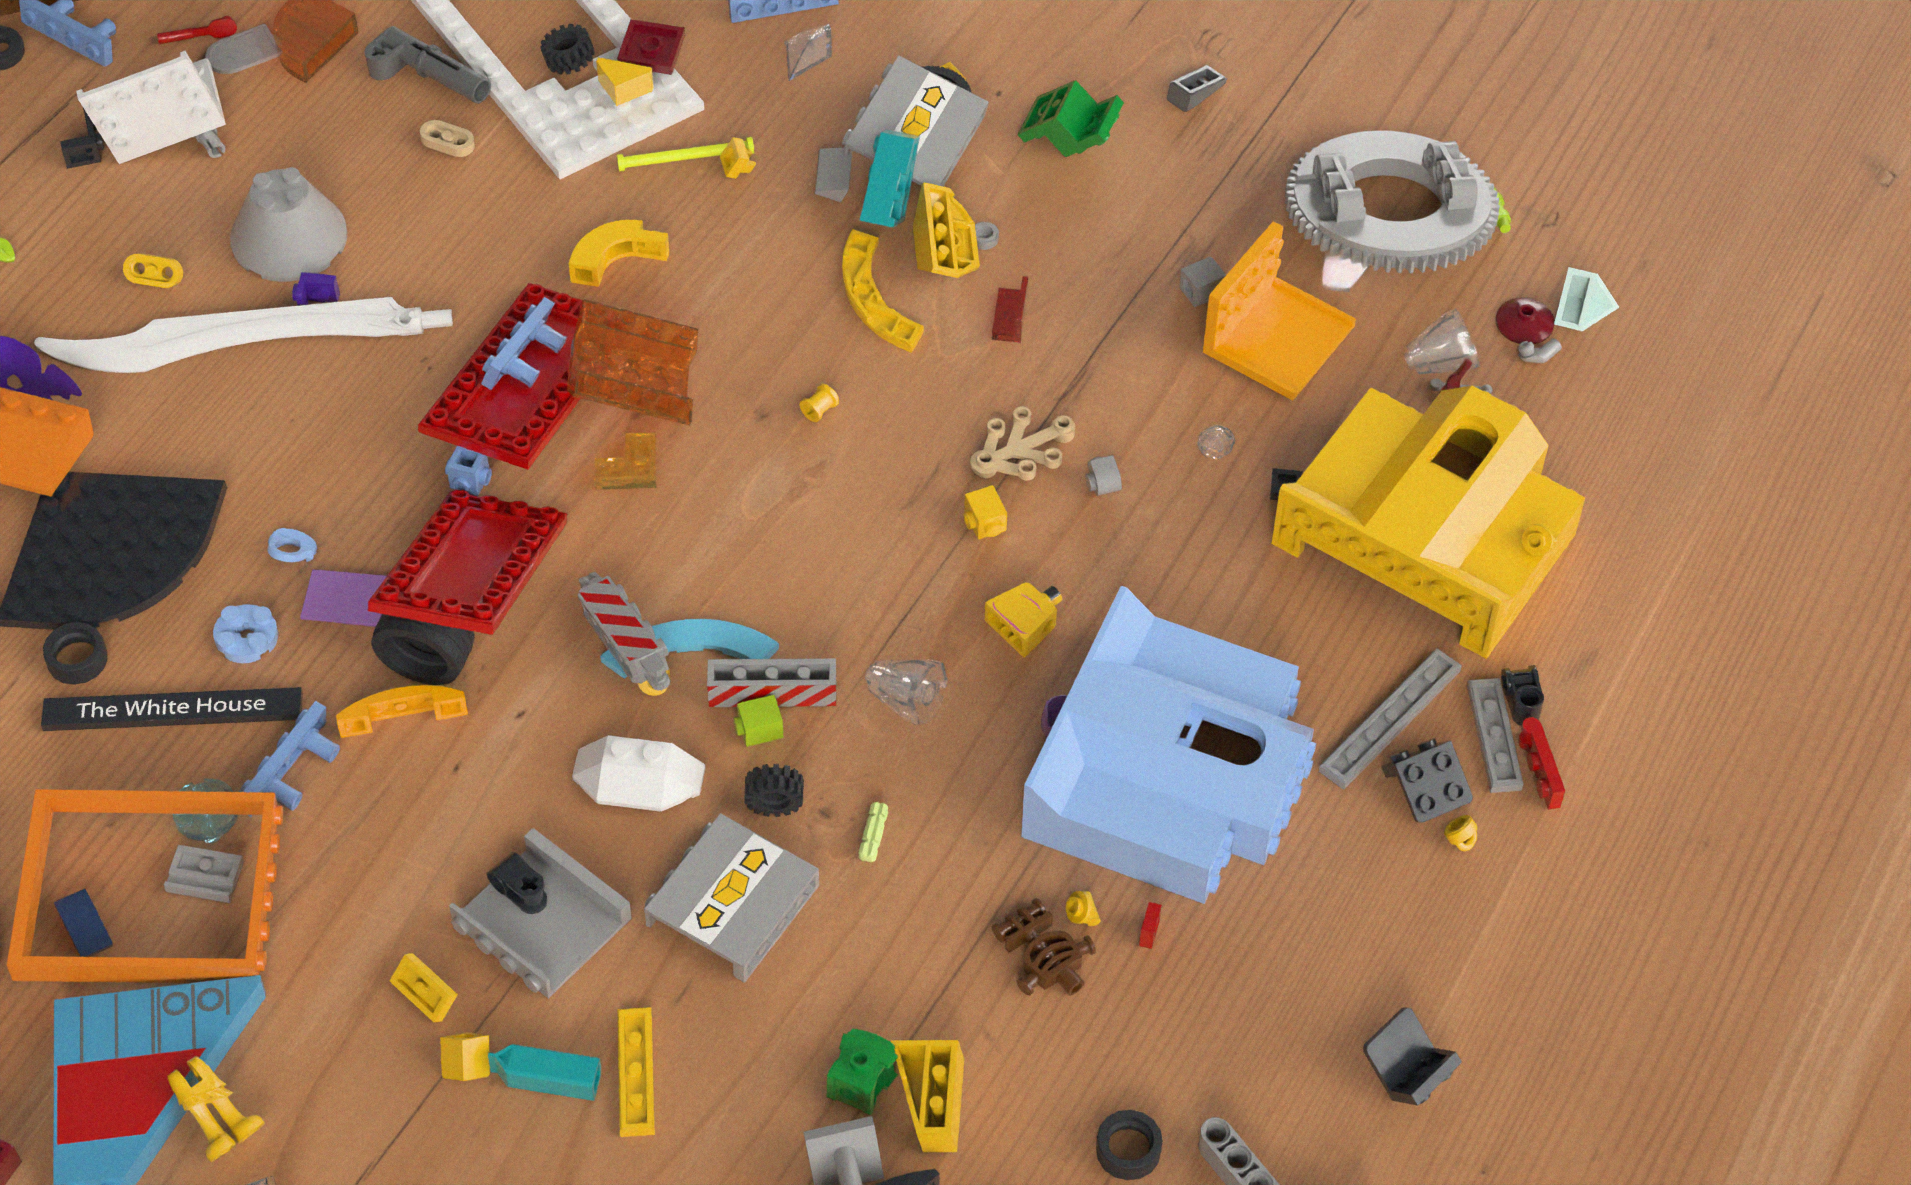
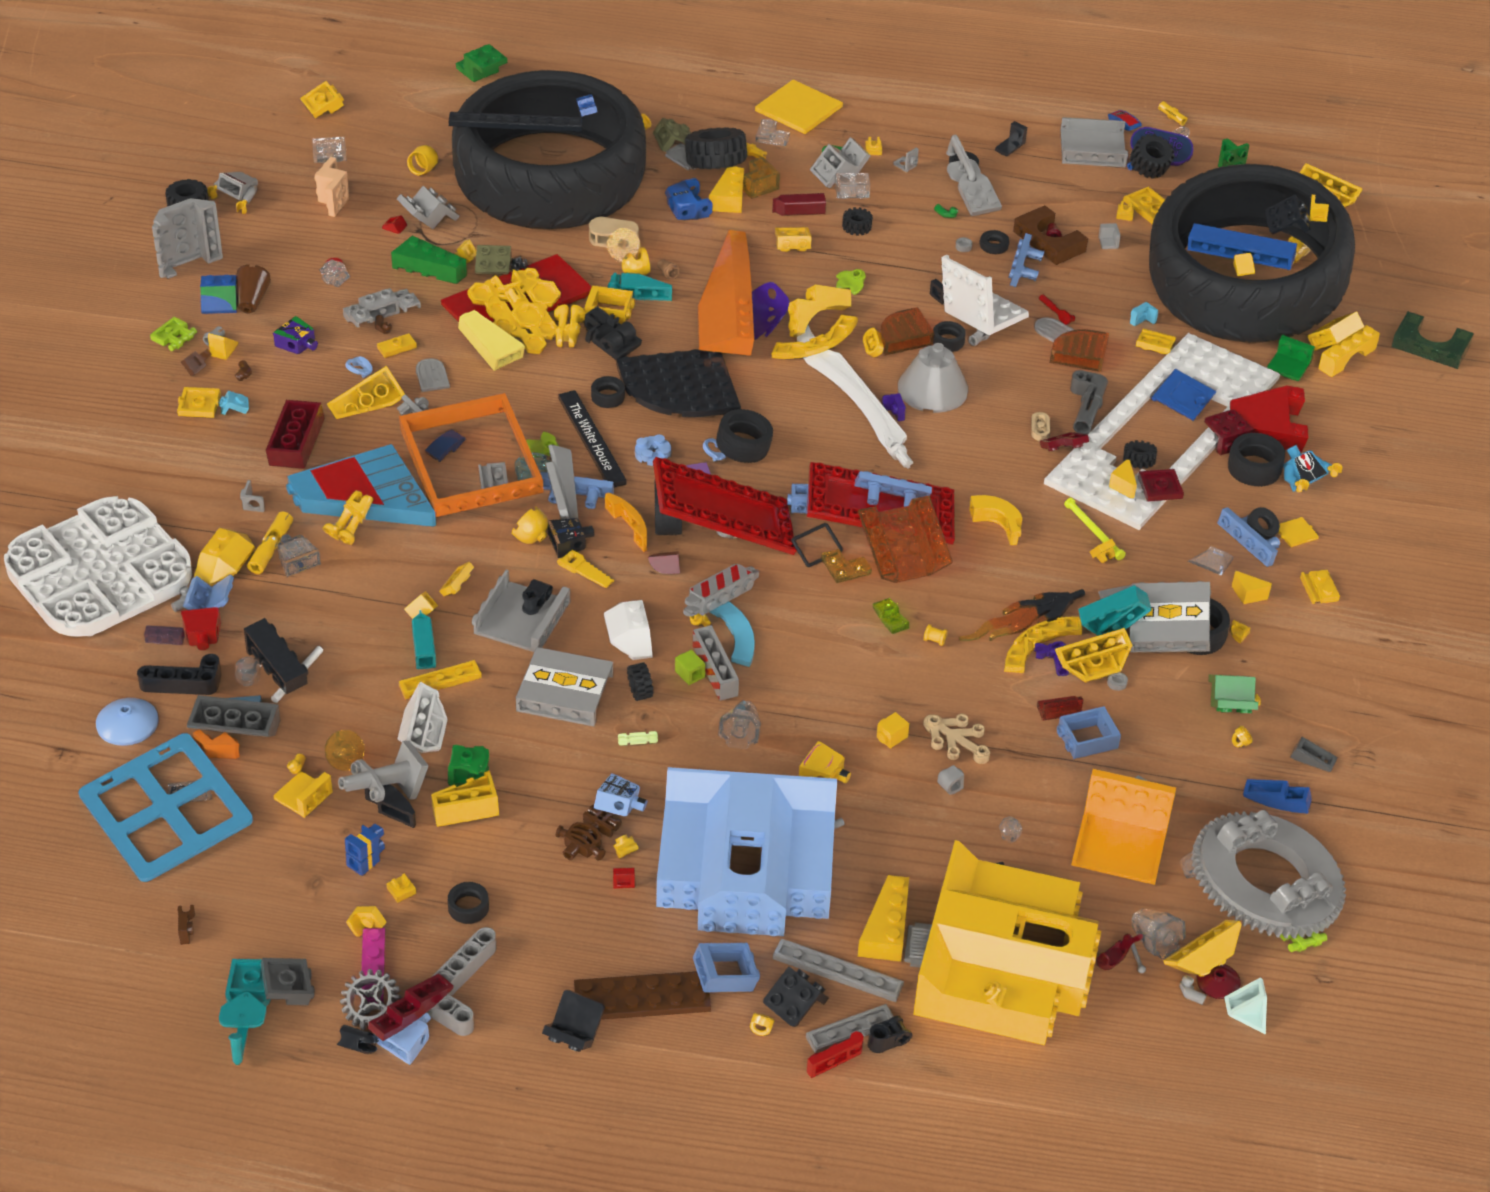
camera: 70 degrees right, 10 degrees down
(33, 302) = (818, 299): none -> yellow arch
(118, 339) = (818, 344): none -> yellow tile
(149, 219) = (905, 331): none -> clear orange brick
(150, 774) = (542, 446): none -> lime plate
(190, 191) = (951, 328): none -> black tyre
(292, 775) = (562, 481): none -> light grey wedge
(294, 520) = (740, 448): none -> black tyre
(357, 846) = (531, 527): none -> yellow cylinder
(396, 803) = (568, 535): none -> black torso
(474, 803) = (584, 568): none -> yellow piece
(494, 115) = (1068, 439): none -> dark red plate
(516, 685) = (665, 562): none -> brick
(585, 460) = (808, 532): none -> black piece
(737, 1117) = (424, 720): none -> white wedge
(745, 445) = (889, 615): none -> clear neon green slope
(811, 279) = (1049, 604): none -> piece
(877, 34) = (1250, 588): none -> yellow slope
(907, 278) = (1049, 650): none -> dark purple bar
(994, 885) = (619, 796): none -> light blue torso
(1061, 275) = (1085, 719): none -> medium blue window
(1141, 140) = (1243, 735): none -> yellow tile
(1254, 144) = (1278, 795): none -> blue slope
(1333, 628) = (886, 925): none -> yellow wedge
(1365, 863) = (709, 953): none -> medium blue window
(1366, 962) = (647, 994): none -> reddish brown plate
(1376, 607) = (916, 943): none -> light grey window
(1489, 309) = (1207, 950): none -> yellow wedge

